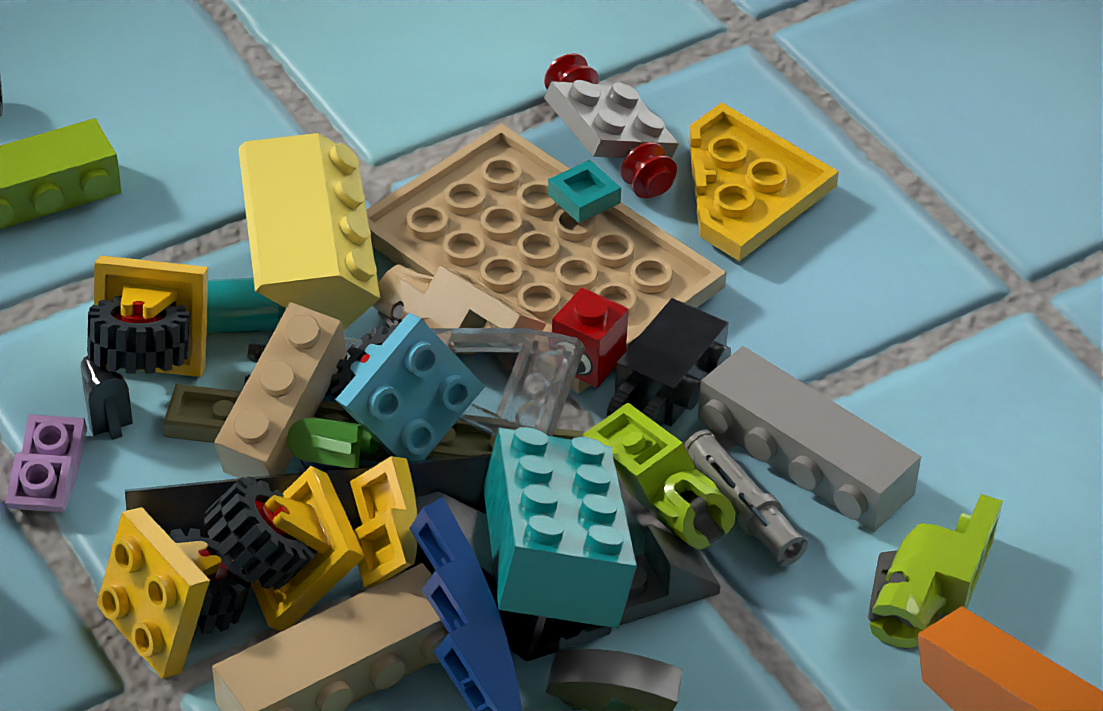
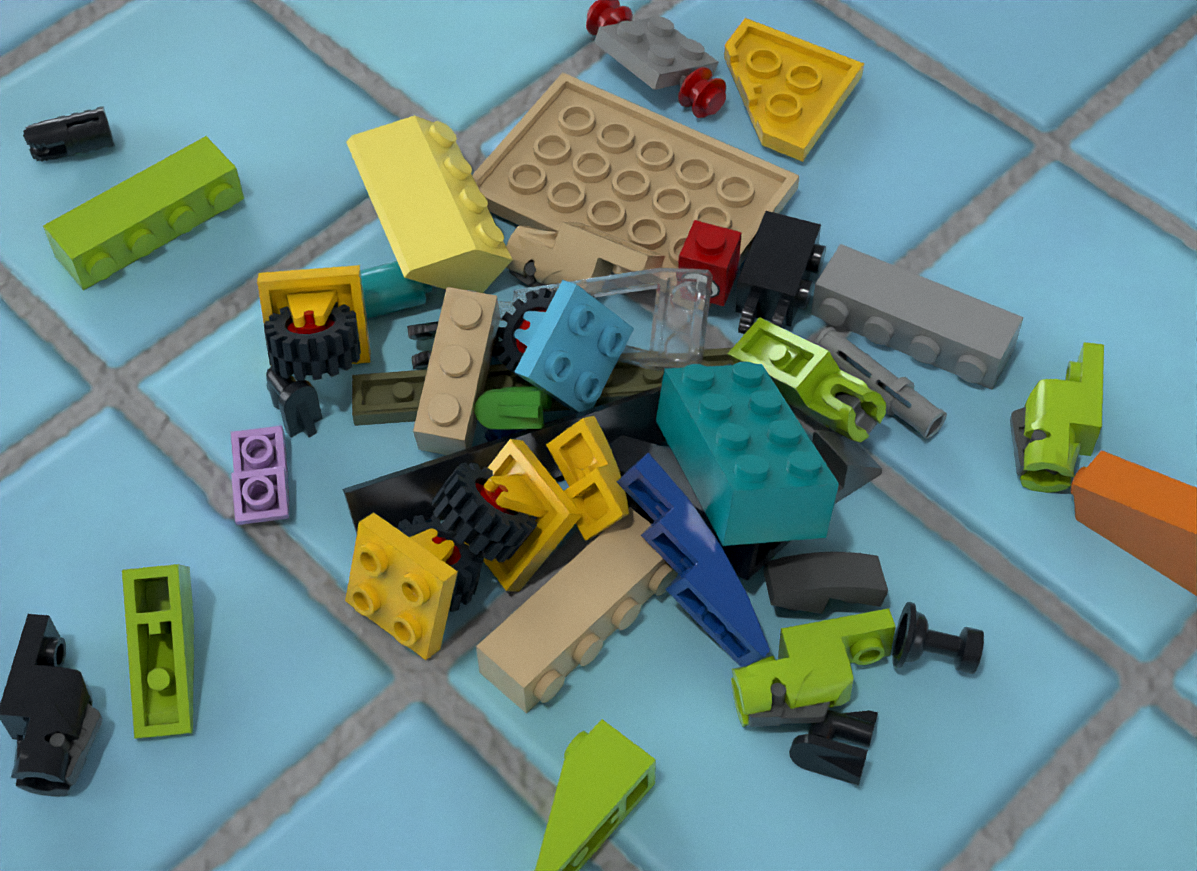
camera: 10 degrees left, 10 degrees up
(584, 191) = (658, 124): teal plate -> none

